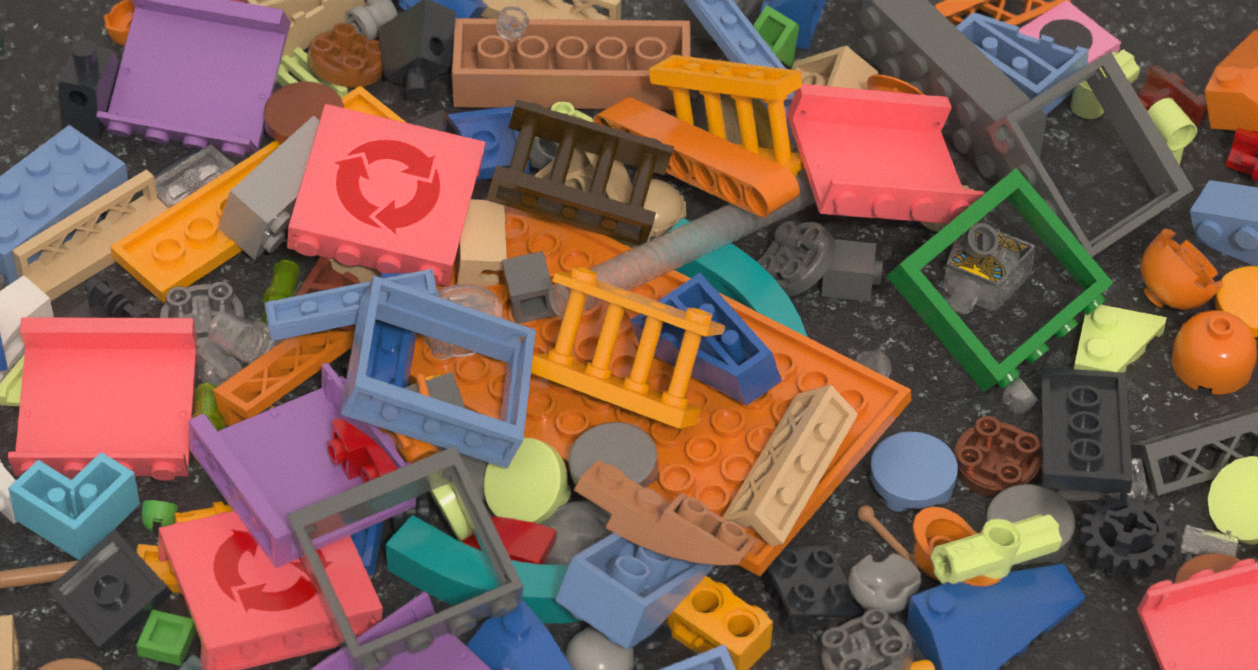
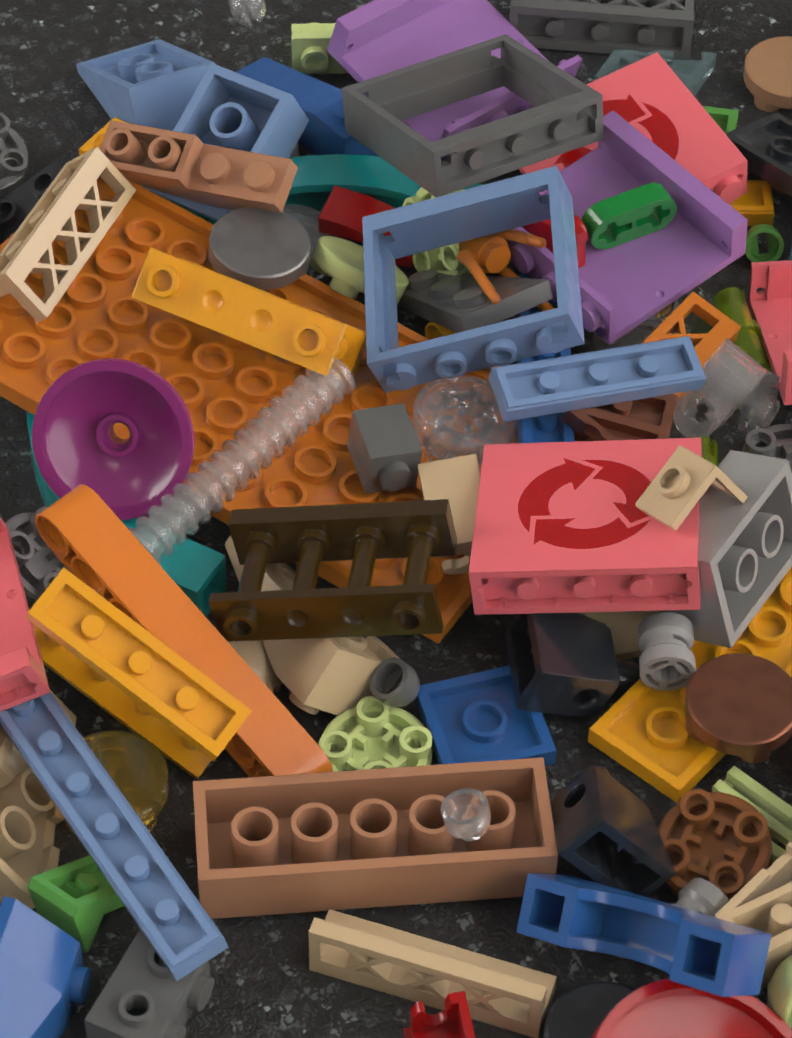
camera: 175 degrees right, 0 degrees up
(286, 459) = (629, 215): none -> green beam
(314, 152) = (681, 486): none -> tan bracket
(729, 362) = (119, 327): blue wedge -> none
(740, 276) = (78, 442): none -> magenta dish

